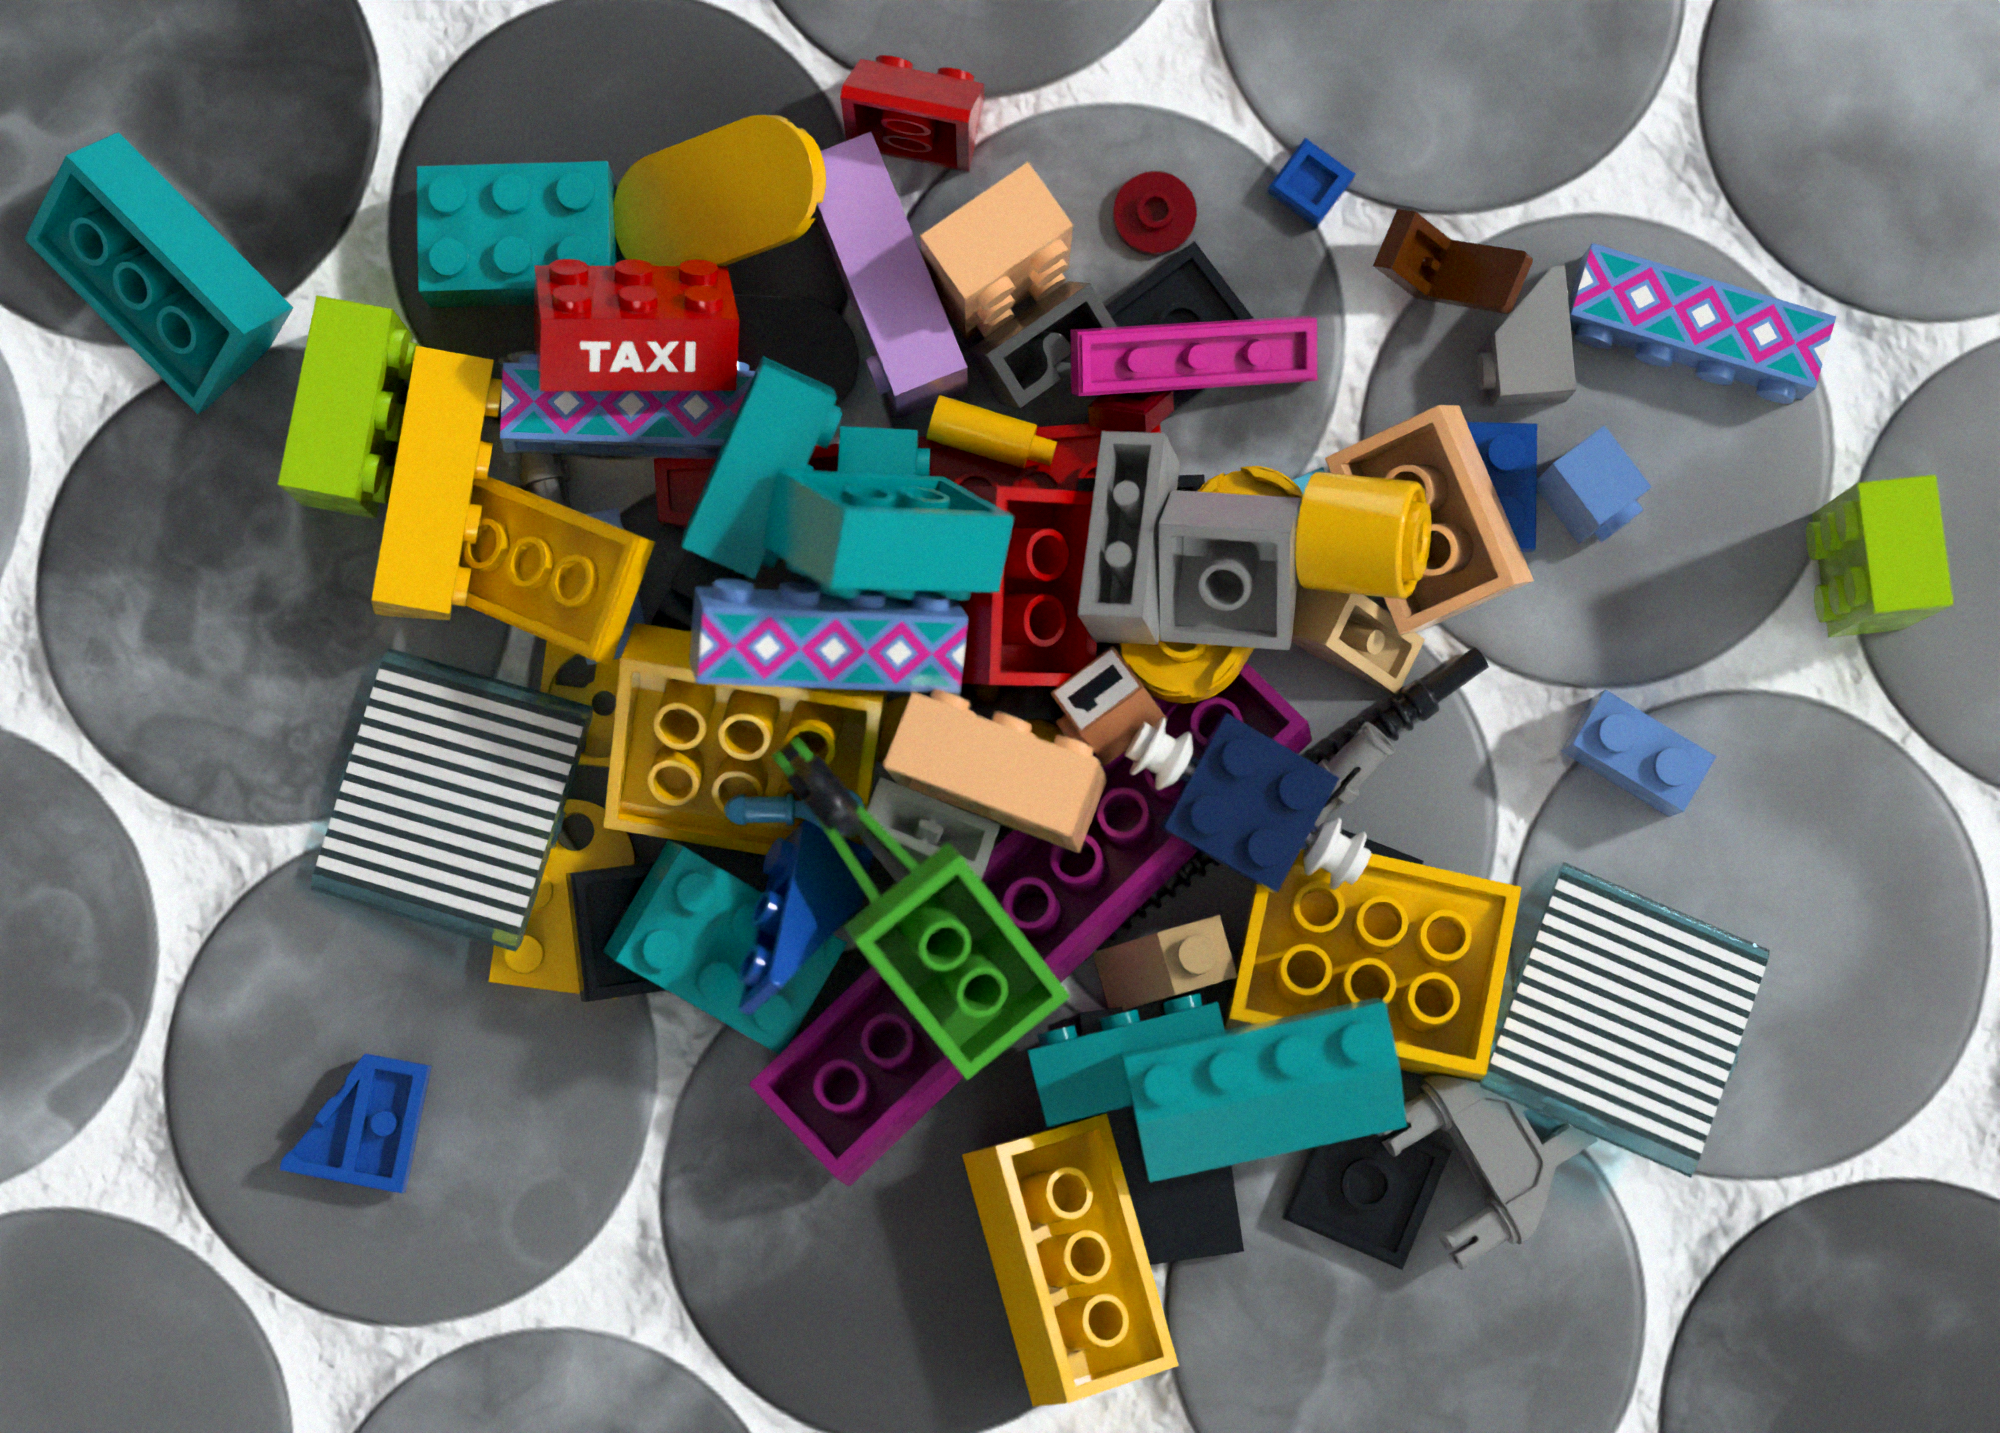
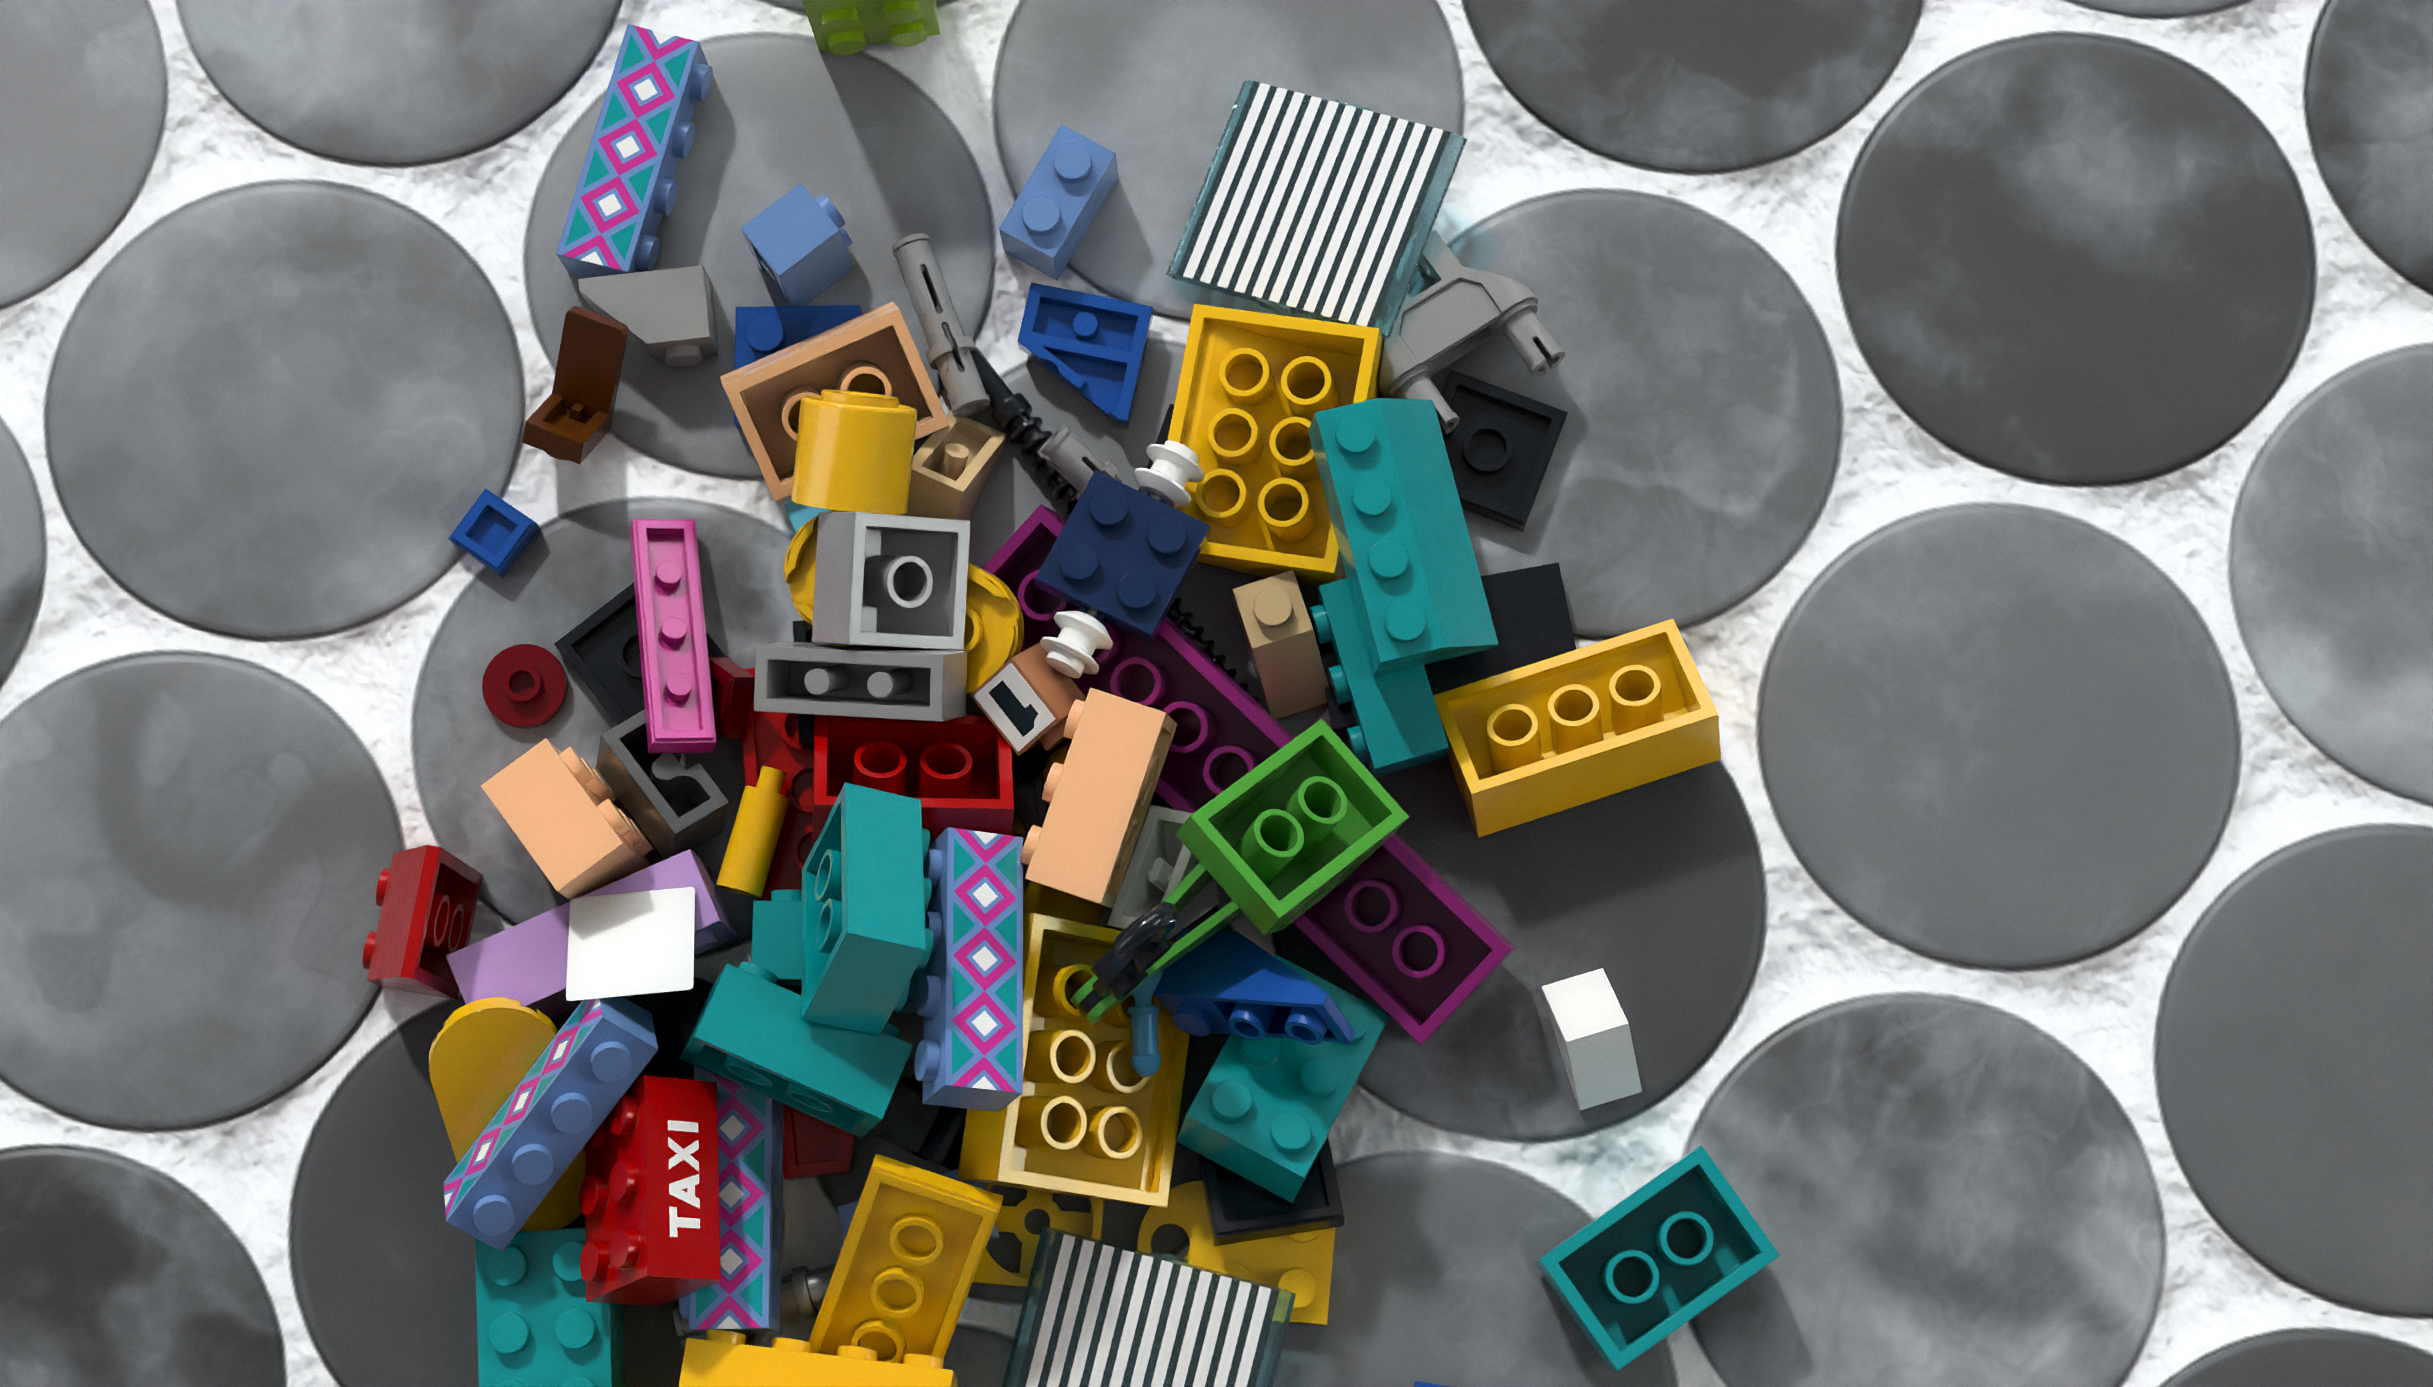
camera: 85 degrees left, 5 degrees down
(531, 1309) = (1656, 1259): none -> teal brick
(710, 230) = (549, 1118): none -> medium blue brick
(758, 1259) = (1593, 1038): none -> white slope
(870, 308) = (631, 944): none -> white sticker
(1443, 651) = (941, 326): none -> light grey pin
(1487, 780) = (1088, 344): none -> blue wing

